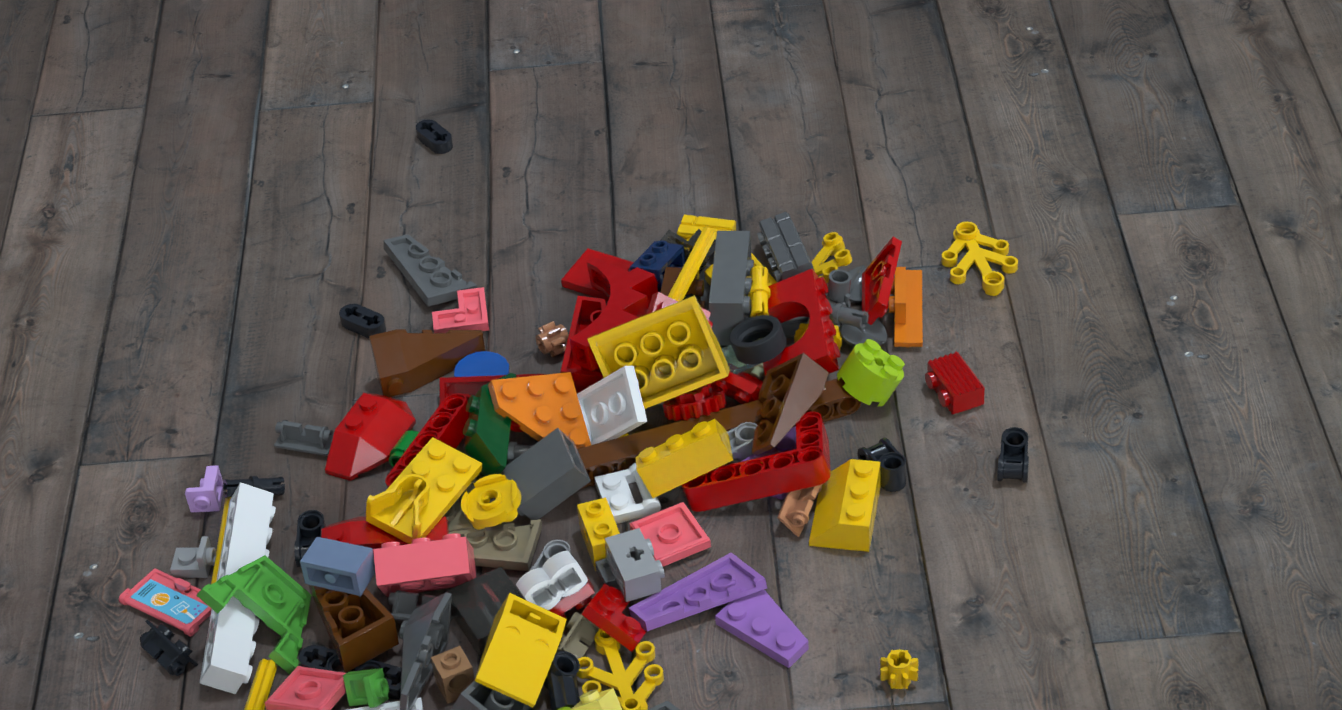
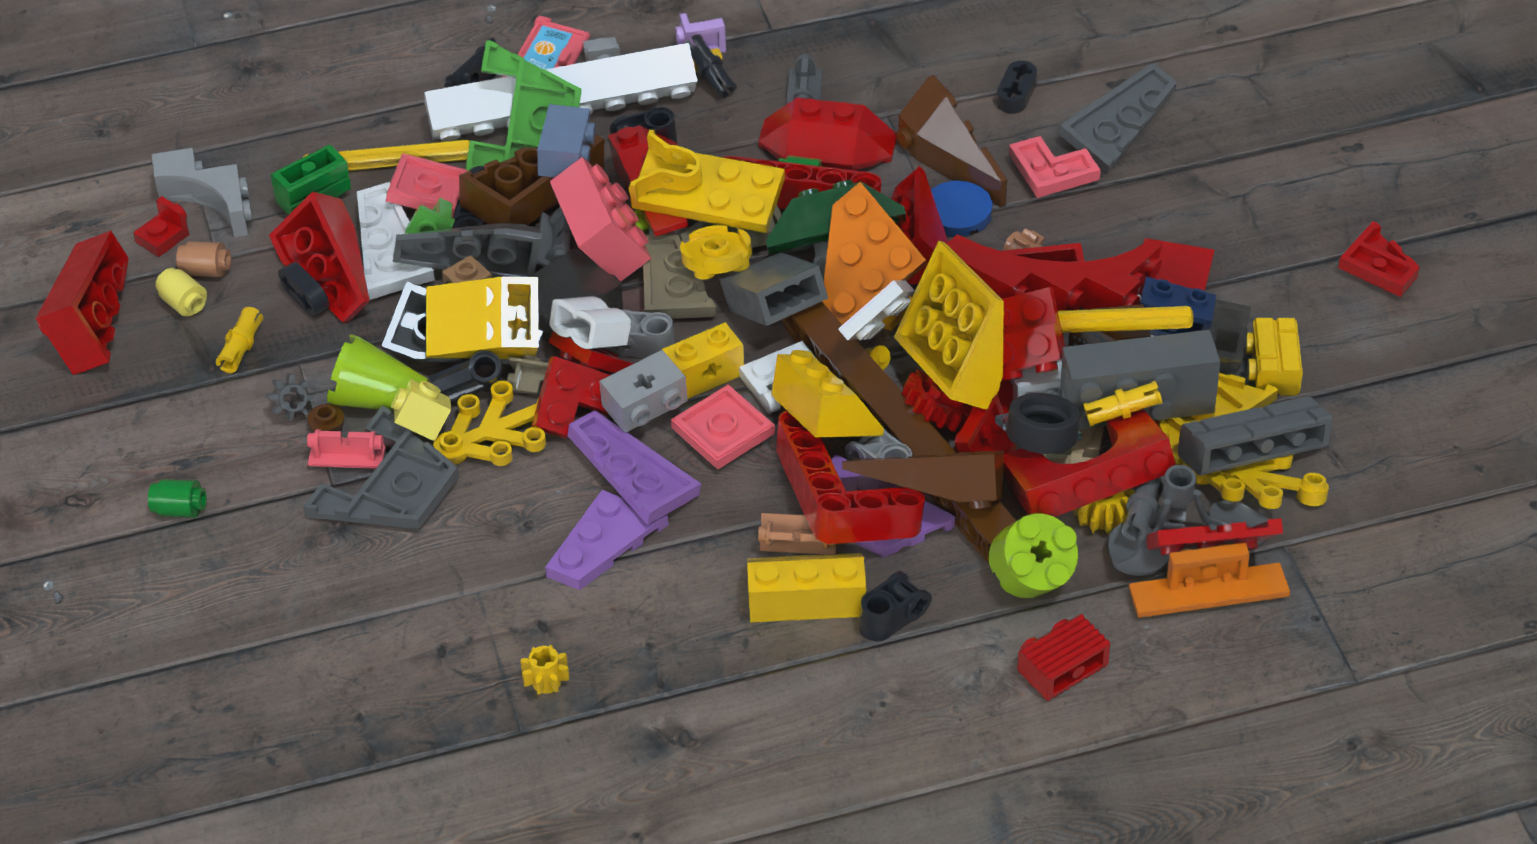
camera: 75 degrees right, 5 degrees up
(434, 136) = (1383, 60): black beam -> none
(631, 175) = (1379, 261): none -> red wing
(968, 235) = (1386, 633): yellow plant -> none
(1014, 456) = (940, 736): black piece -> none

